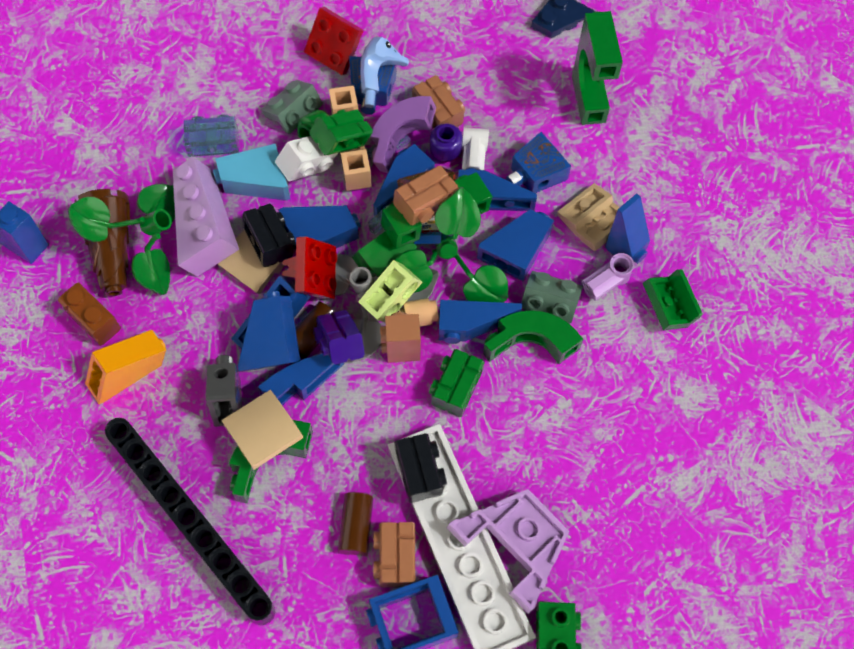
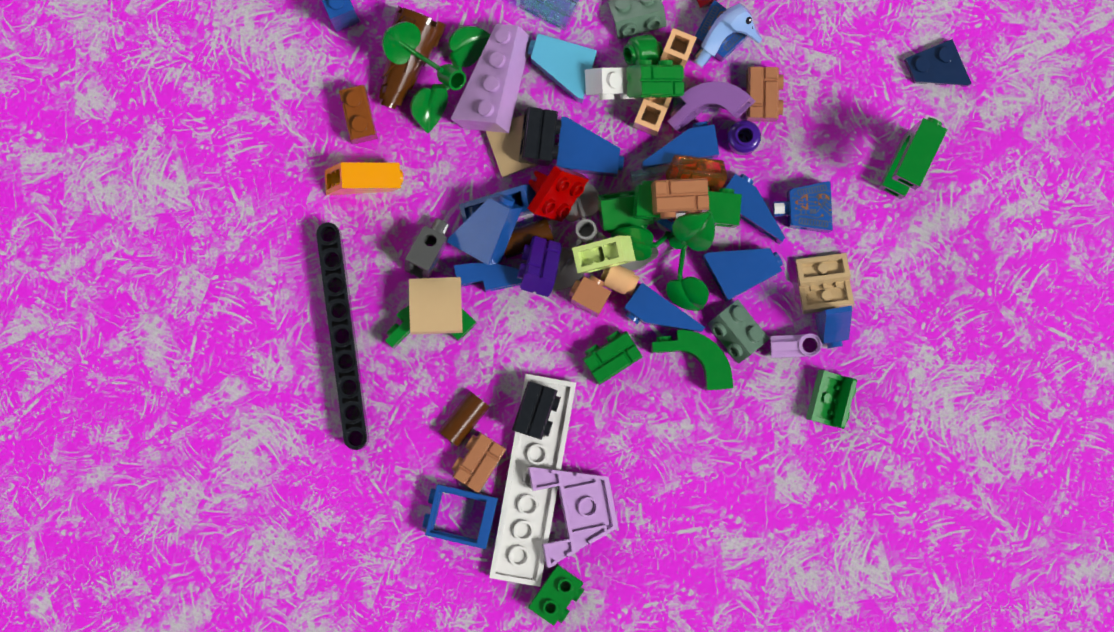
camera: 30 degrees right, 20 degrees up
(474, 146) = (767, 154): white piece -> none

